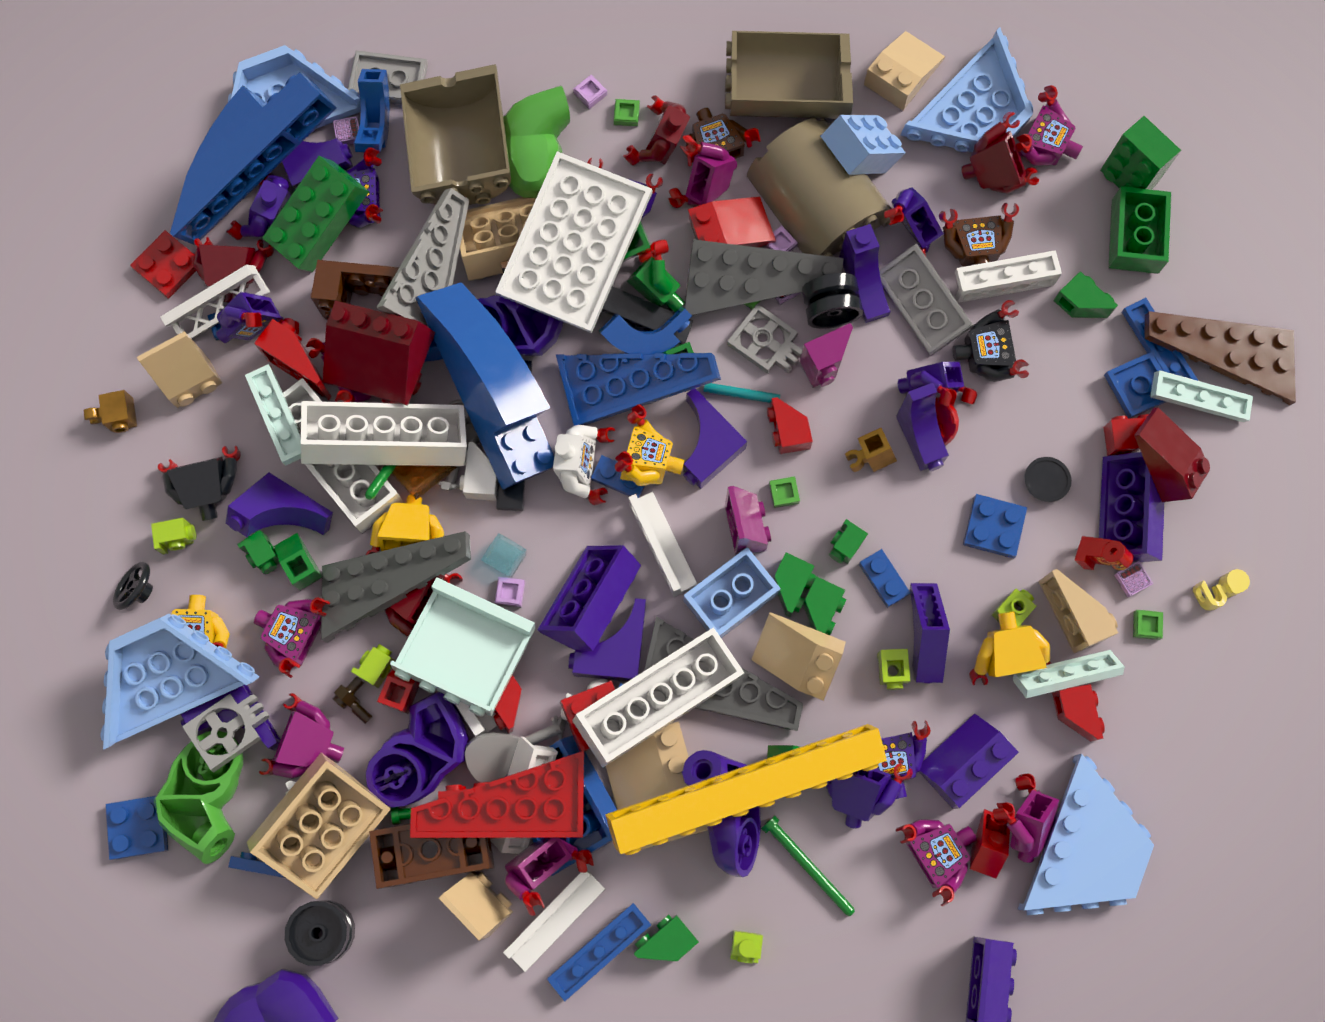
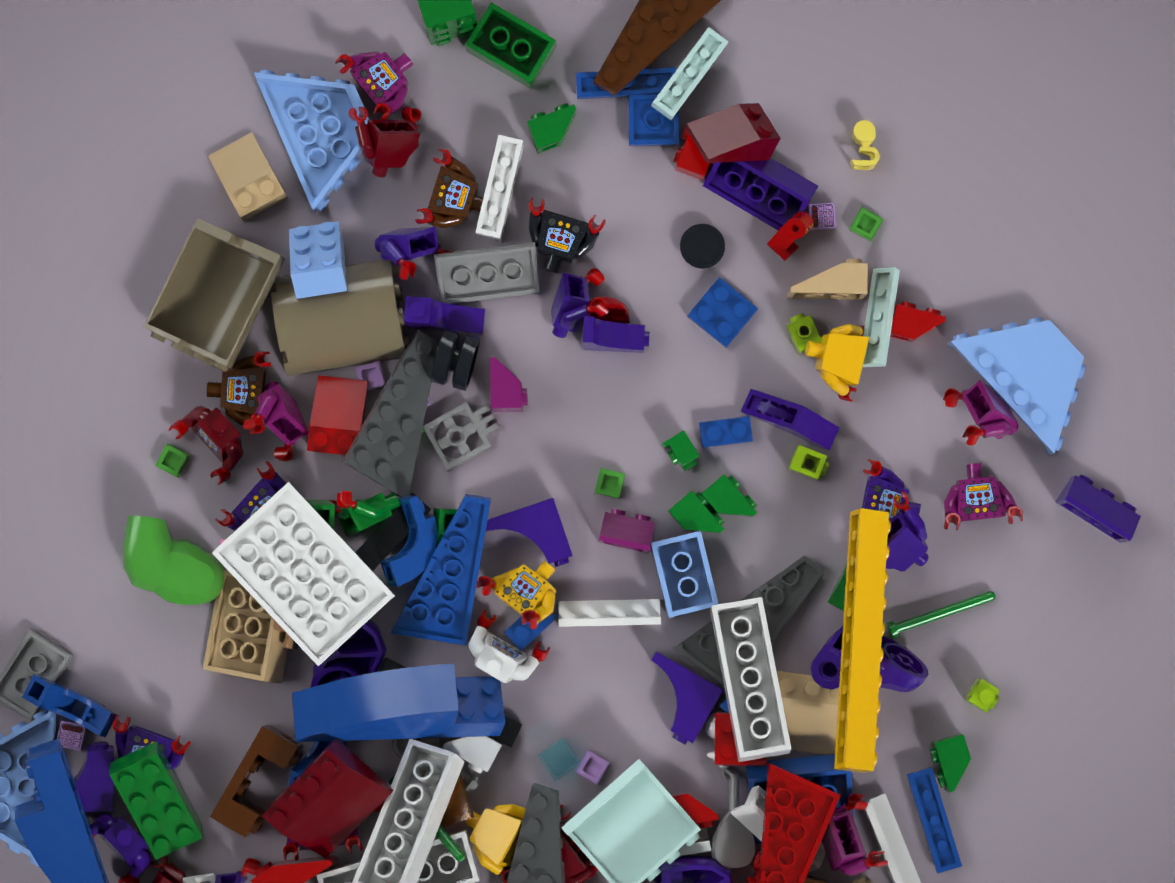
camera: 65 degrees left, 10 degrees up
(430, 259) = (259, 712): light grey wing -> none
(456, 136) = (135, 636): dark tan cylinder -> none
(590, 91) = (134, 485): lavender tile -> none
(590, 597) = (632, 699): dark purple slope -> none
(739, 392) = (505, 472): teal bar -> none
(791, 427) = (555, 451): red slope -> none
(799, 655) = (763, 540): tan slope -> none
(874, 450) = (610, 387): pearl gold brick -> none
(967, 761) = (913, 438): dark purple slope -> none
(991, 846) = (992, 455): red slope -> none

